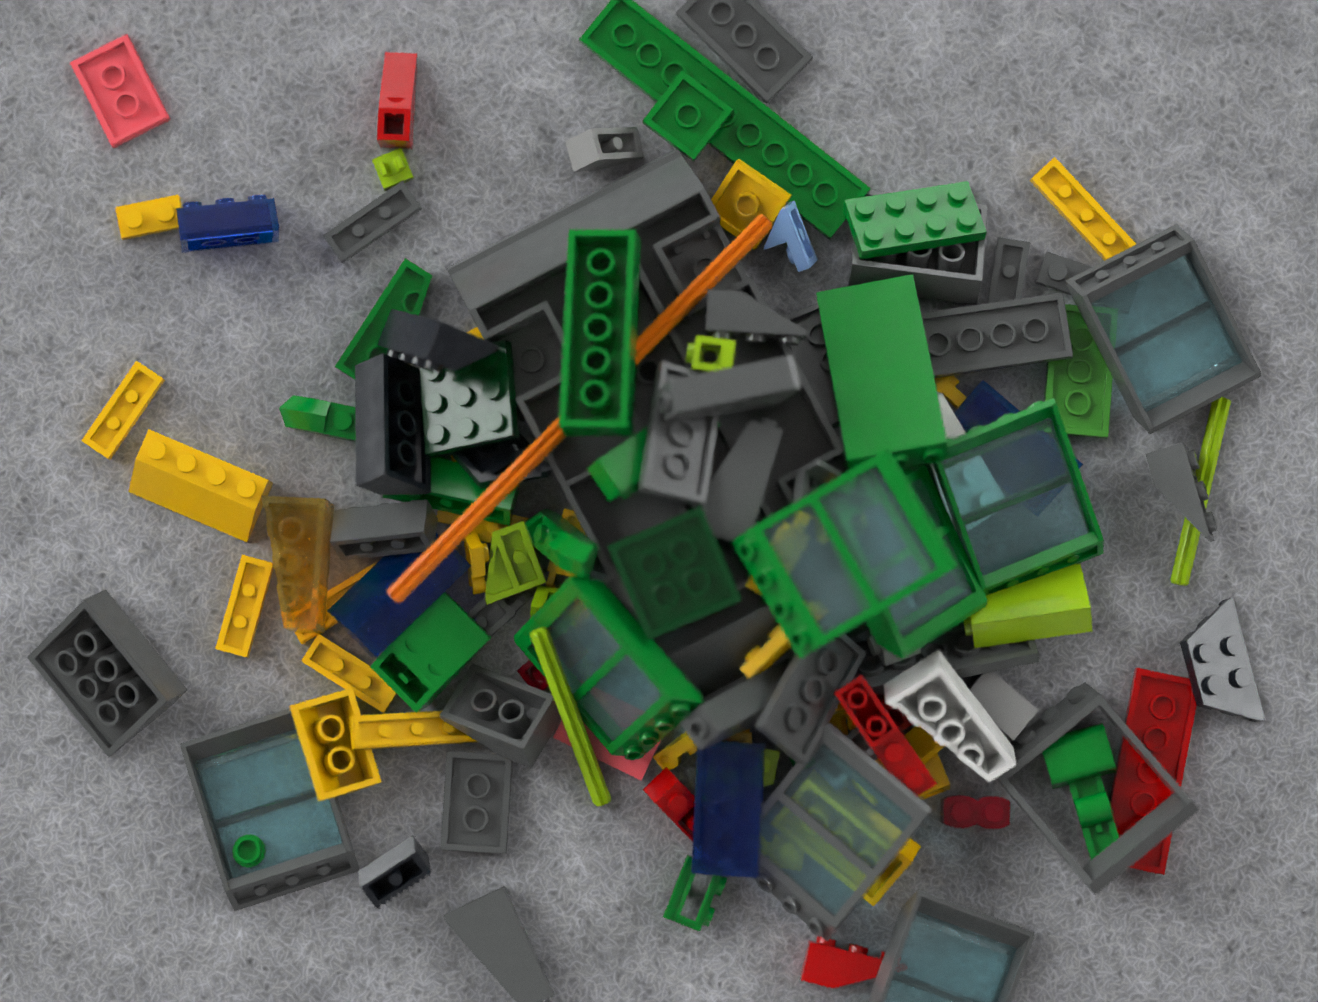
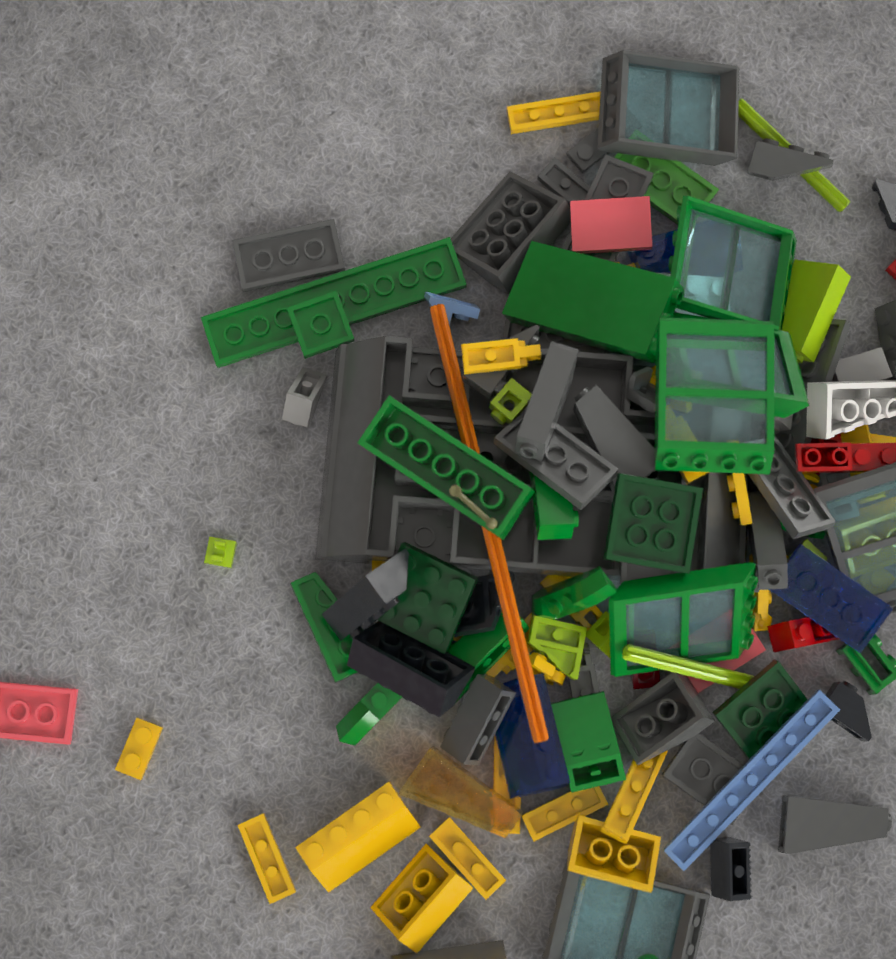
camera: 65 degrees left, 5 degrees down
(177, 585) = (421, 898): none -> yellow slope
(227, 223) = (182, 693): clear blue slope -> none
(372, 222) = (248, 590): dark grey plate -> none
(397, 101) = (175, 517): slope -> none
(495, 839) = (751, 779): none -> medium blue plate
(570, 822) = (760, 708): none -> dark green plate
(578, 356) = (456, 491): none -> olive hinge
(630, 897) = (852, 710): none -> black slope
(745, 196) = (408, 319): yellow plate -> none
(746, 311) = (498, 355): none -> yellow hinge
(914, 219) = (491, 220): plate -> none
(985, 346) = (611, 225): none -> coral tile

